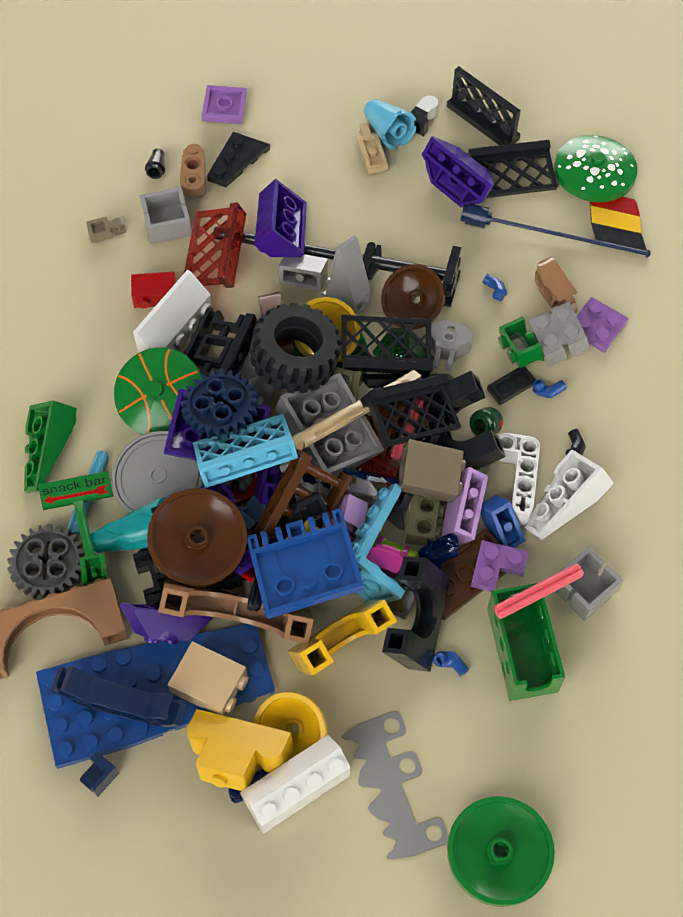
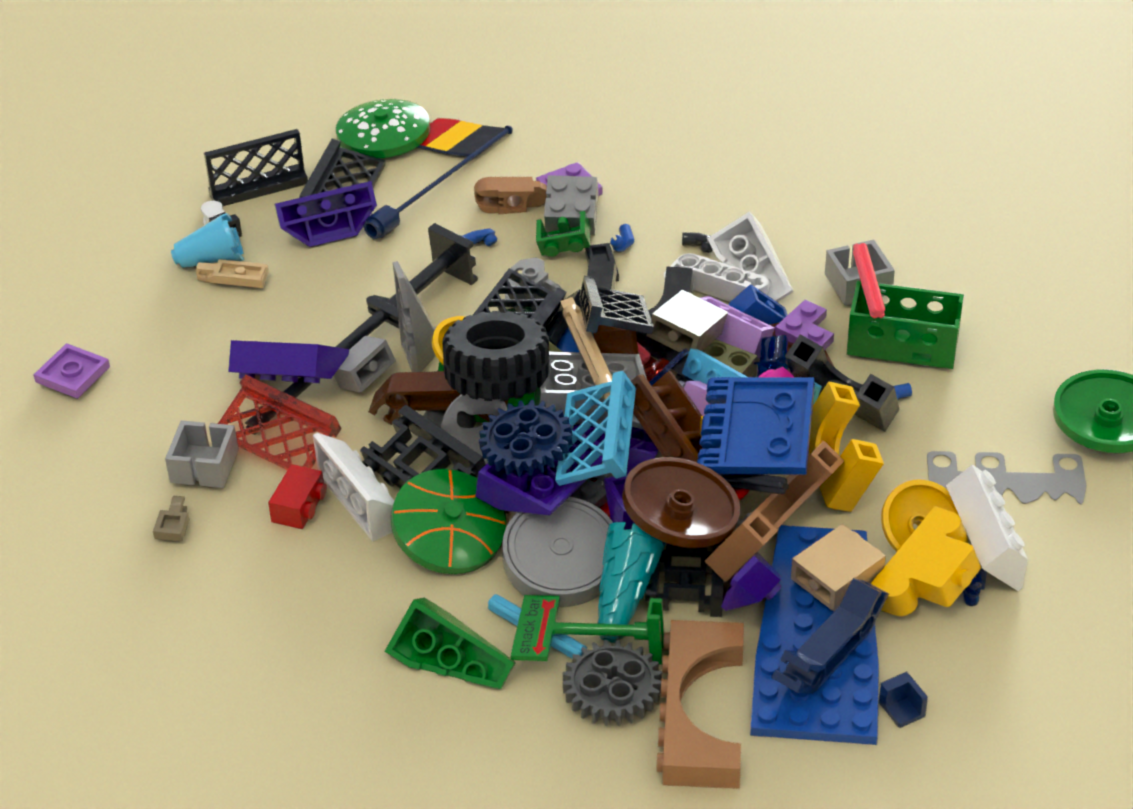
camera: 65 degrees left, 20 degrees down
(155, 165) = (114, 451): black cone -> none
(193, 171) = (149, 418): medium nougat piece -> none
(235, 157) = (155, 385): black wing -> none
(307, 507) = (688, 420): black tile -> none
(406, 285) = (454, 275): reddish brown dish -> none
(486, 419) = (642, 283): dark green head -> none

